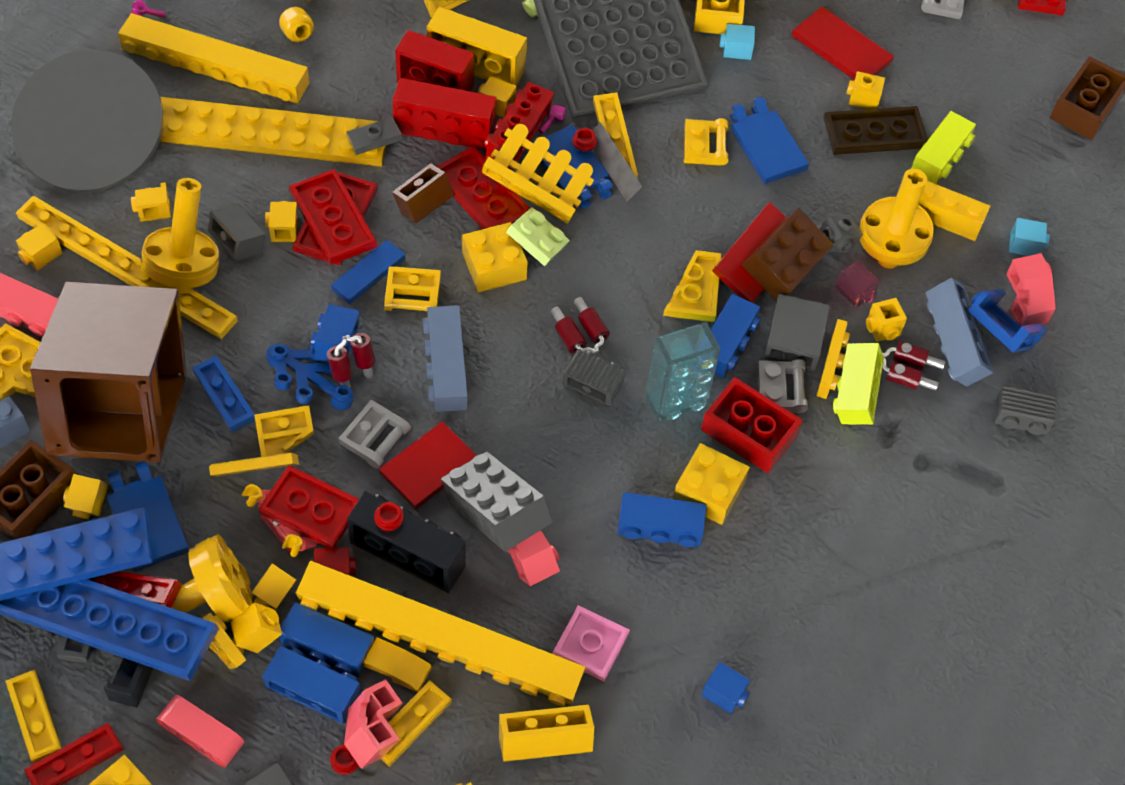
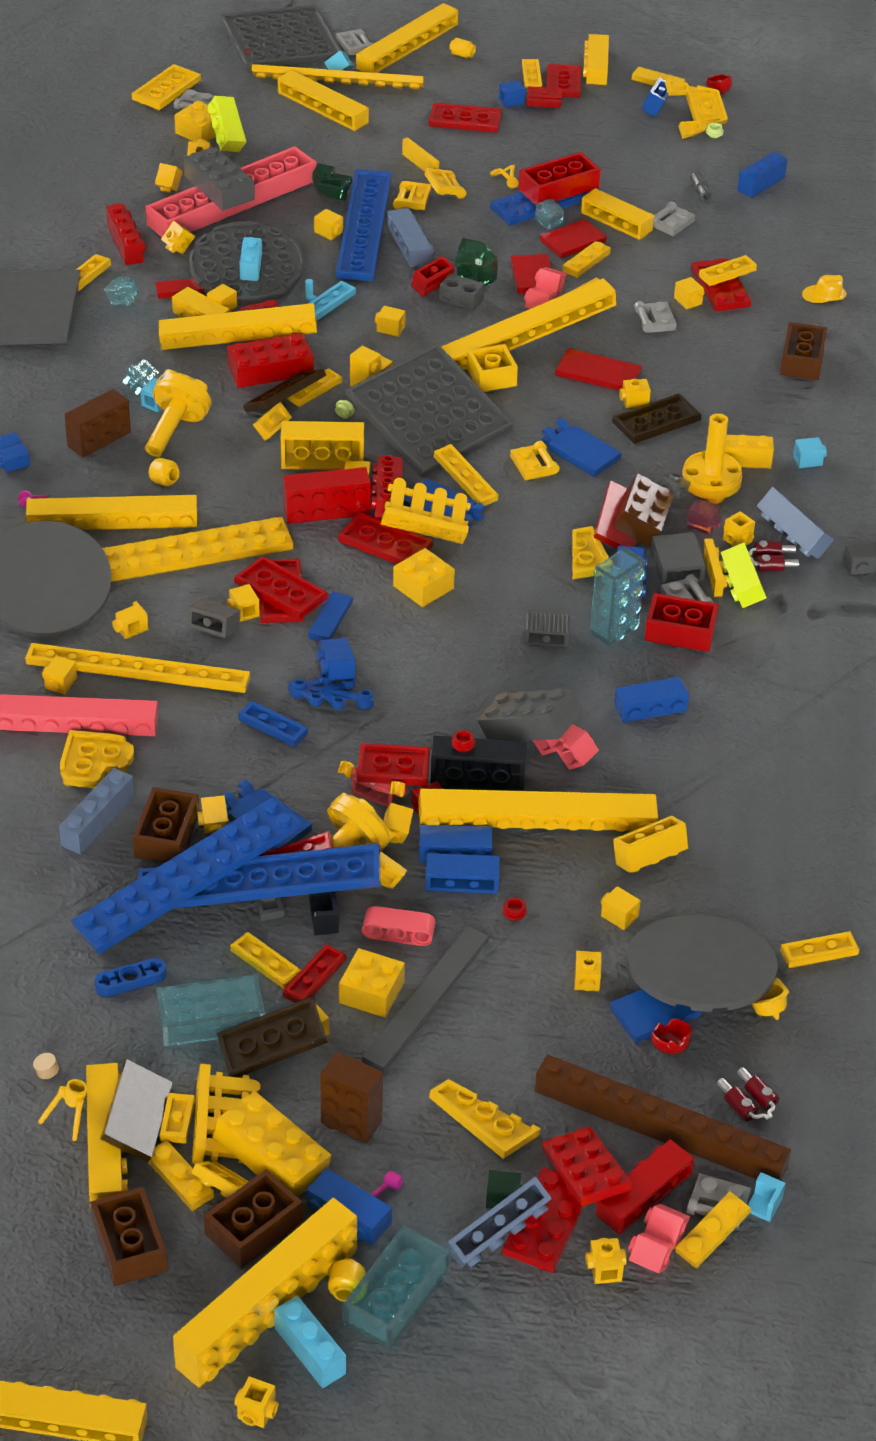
camera: 20 degrees left, 15 degrees down
(110, 372) = (192, 717): reddish brown piece -> none
(180, 253) = (183, 643): yellow piece -> none
(253, 464) = (330, 756): yellow tile -> none
(256, 628) = (403, 846): yellow brick -> none
(283, 430) = (334, 733): yellow wing -> none
(363, 356) = (362, 665): dark red piece -> none
(367, 729) = (524, 876): coral brick -> none
(368, 427) = (397, 713): light grey plate -> none
(374, 135) = (279, 525): dark grey plate -> none
(398, 664) = (509, 841): yellow slope -> none
(412, 282) = (373, 612): yellow plate -> none
(416, 718) = (546, 876): yellow tile -> none
(419, 467) = (456, 714): red tile -> none
(423, 193) = (343, 551): reddish brown brick -> none
(434, 62) = (294, 459): red brick -> none
(447, 358) = (430, 649): sand blue brick -> none
(538, 236) = (443, 549): yellowish green plate -> none
(556, 113) = (409, 474): dark pink hand -> none
(584, 139) = (444, 481): red plate -> none
(590, 321) = (517, 605): dark red piece -> none
(591, 642) = (648, 783): bright pink tile -> none
(615, 164) = (475, 490): flat silver sticker -> none
(713, 481) = (674, 661): yellow brick -> none
(726, 688) = (759, 782): blue brick -> none
(738, 41) = (519, 388): medium azure brick -> none
(945, 147) = (716, 402): neon yellow brick -> none
(1002, 325) = (843, 513): blue panel -> none
(1034, 290) = (834, 478): coral brick -> none

